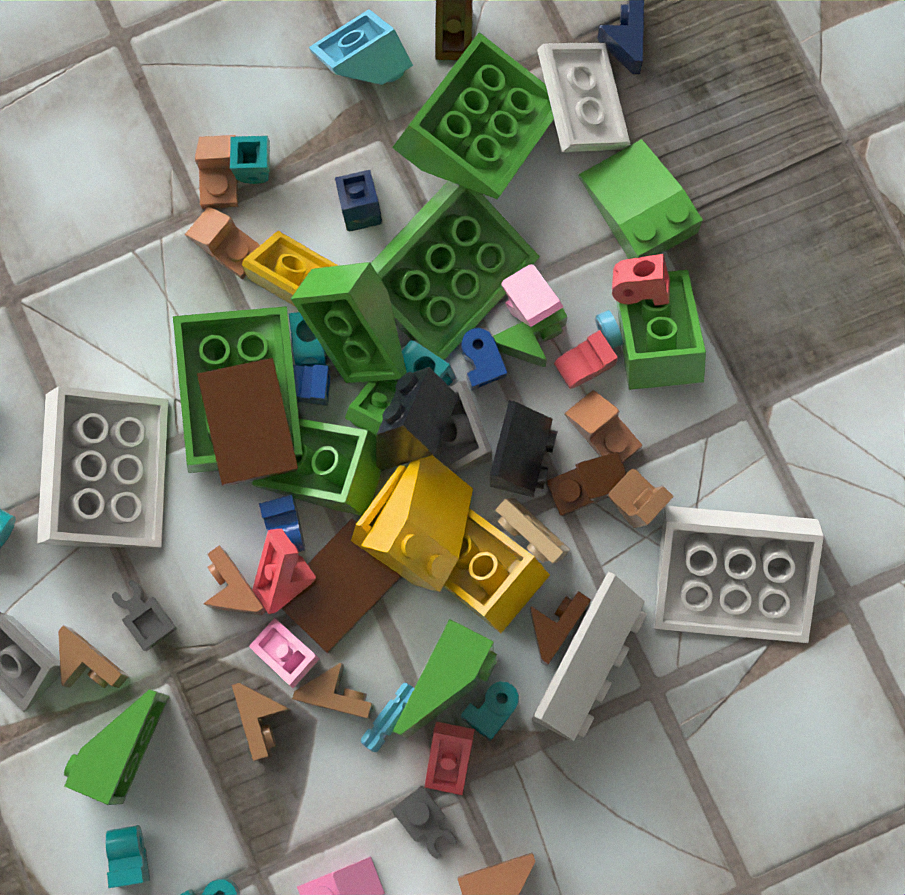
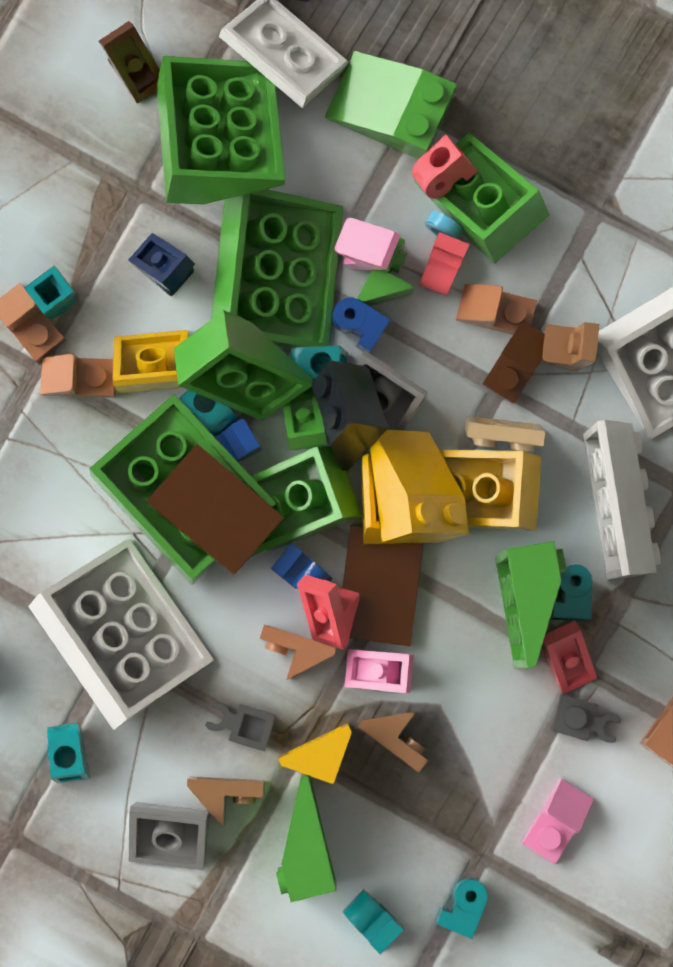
camera: 40 degrees left, 5 degrees up
(184, 688) = (320, 756): none -> yellow slope
(323, 693) = (432, 680): medium nougat slope -> none
(364, 50) = (74, 137): medium azure slope -> none
(387, 719) = (497, 659): medium azure axle -> none
(521, 450) = (446, 373): black slope -> none
(550, 634) = (576, 503): reddish brown slope -> none

